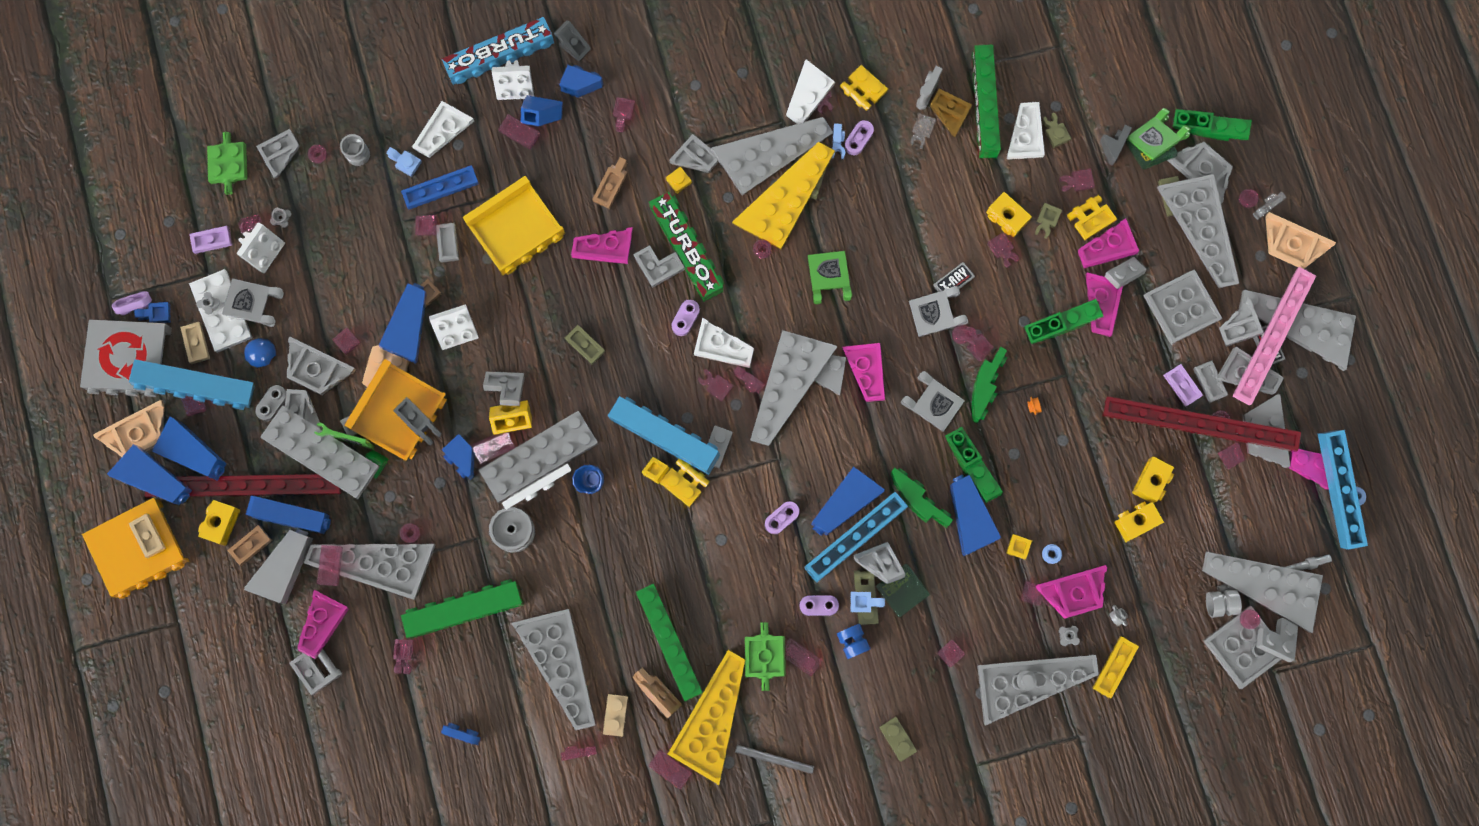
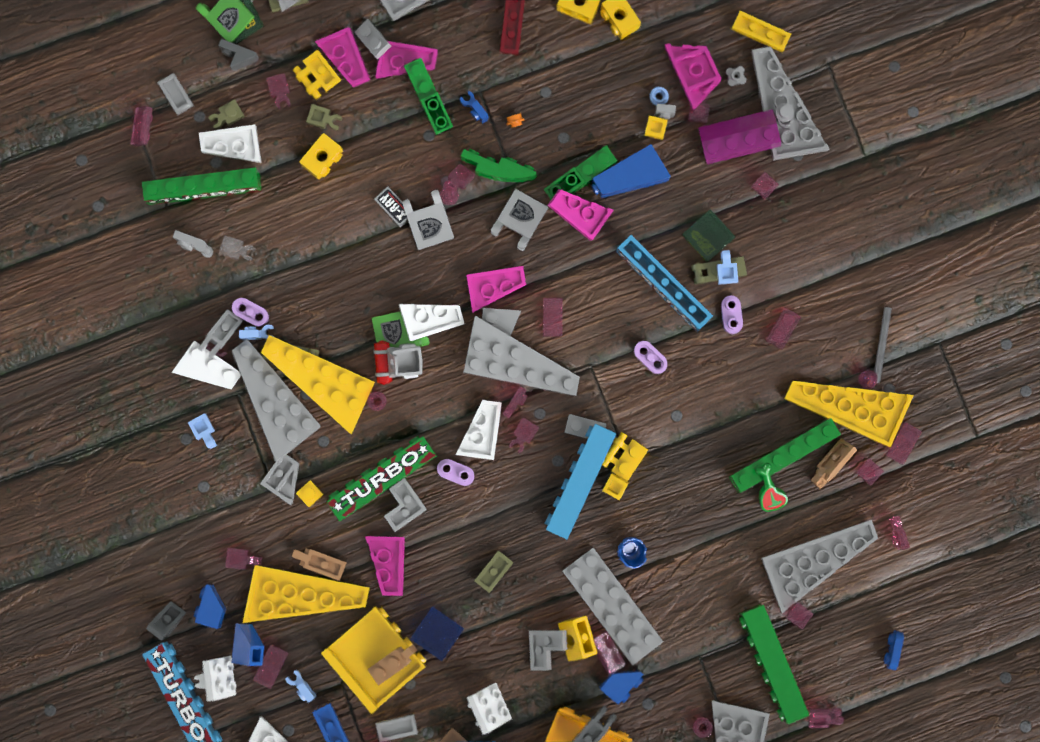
camera: 95 degrees left, 5 degrees up
(495, 159) = (304, 690): none -> light blue plate
(505, 520) = (697, 633): light grey wheel -> none
(507, 240) = (391, 664): none -> medium nougat hinge
(507, 641) = (799, 615): none -> clear pink plate
(530, 491) = (642, 598): white wing -> none
(531, 286) = (437, 633): none -> clear blue plate
(585, 153) = (289, 594): none -> yellow wing
(615, 715) = (858, 501): tan plate -> none
(629, 623) = (770, 497): none -> green piece
(644, 730) = (869, 471): none -> clear pink plate
(739, 738) = (864, 377): none -> clear pink plate
(750, 86) = (202, 428): none -> light blue plate
(765, 656) = (787, 361): bright green plate -> none
(798, 269) = (397, 361): none -> light grey piece
(831, 425) = (552, 317): none -> clear pink plate
(838, 303) = (427, 319): none -> white wing
(840, 108) = (221, 332): none -> light grey hinge
(848, 499) = (626, 294): blue slope -> none
(859, 646) = (768, 273): blue wheel -> none
(867, 84) = (190, 309): yellow plate -> none
(881, 562) = (686, 257): light grey wing -> none
(897, 739) = (850, 230): olive plate -> none
(912, 494) = (614, 231): green slope -> none
(934, 459) = (581, 214): none -> dark pink wing
(950, 110) = (214, 221): pearl gold wing -> none
(1002, 247) = (355, 161): clear pink plate -> none
(1003, 631) = (740, 136): none -> magenta slope
(1035, 557) = (665, 111): none -> light grey plate
(1045, 369) = (477, 110): none -> blue plate
(1051, 51) = (141, 126): none -> clear pink plate
(1079, 85) = (175, 94): none -> light grey tile
(1119, 616) = (713, 30): light grey plate -> none

